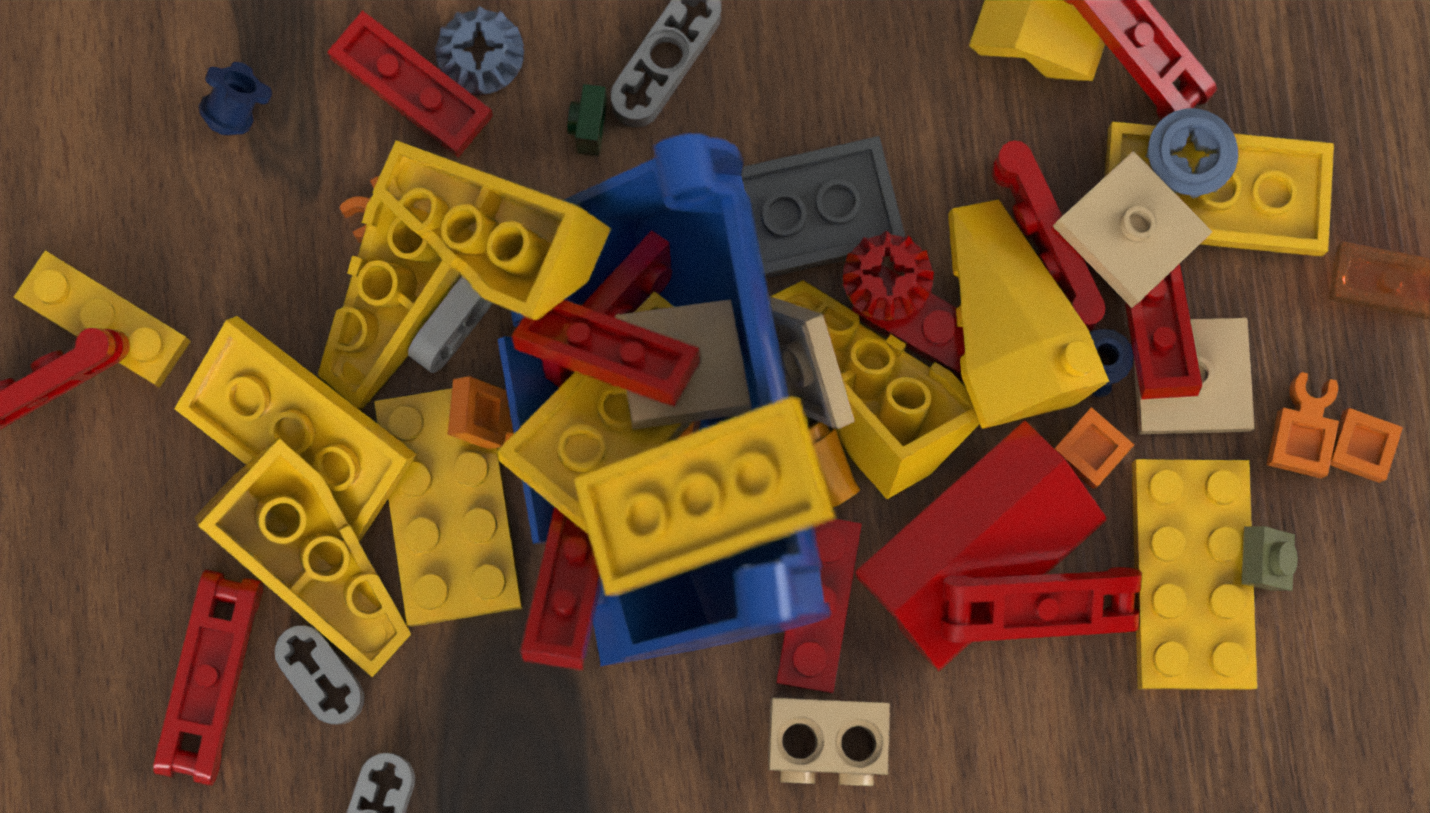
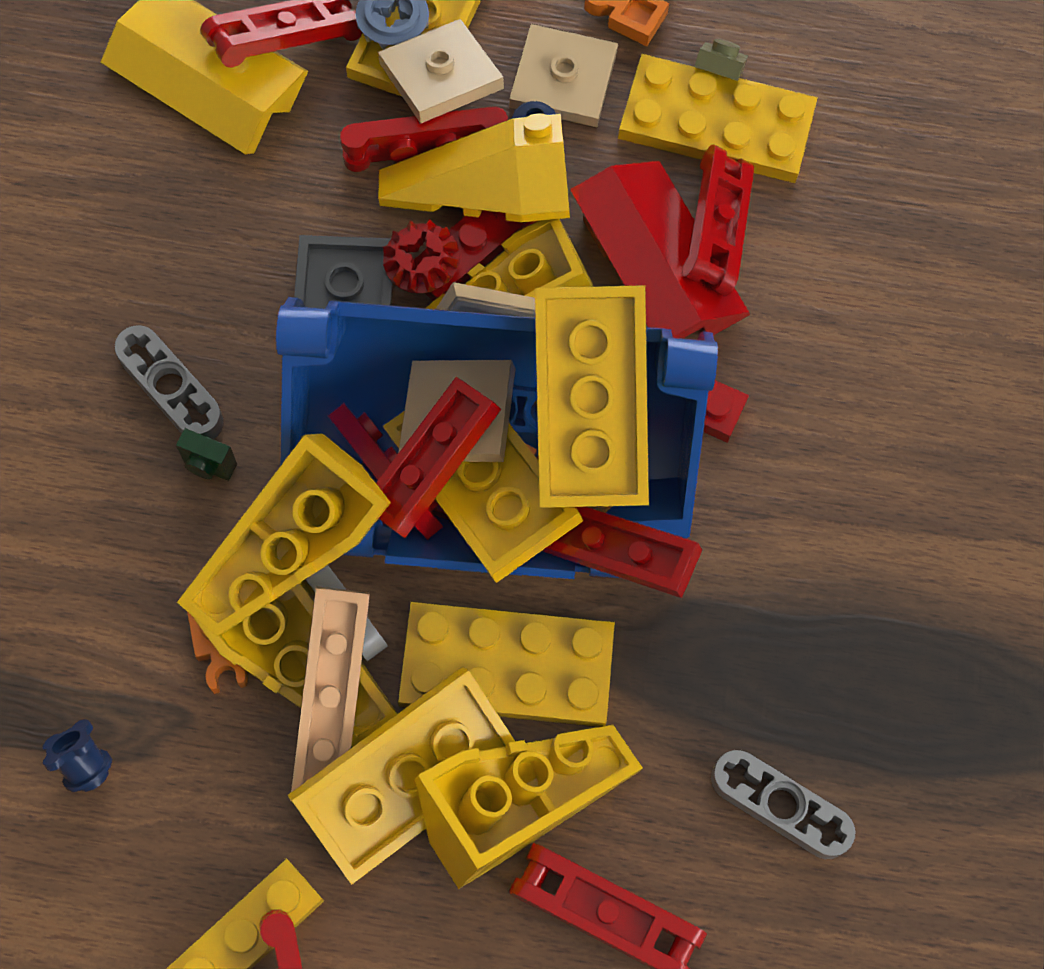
camera: 75 degrees left, 10 degrees down
(309, 684) = (625, 800): light grey beam -> none
(366, 322) = (330, 680): none -> light nougat plate
(410, 84) = (117, 600): red plate -> none
(479, 413) = (443, 603): orange plate -> none
(498, 65) = (118, 553): sand blue gear -> none
(828, 723) = (779, 404): tan brick -> none
(1093, 448) = (600, 151): orange plate -> none
(1164, 341) = (539, 75): red plate -> none

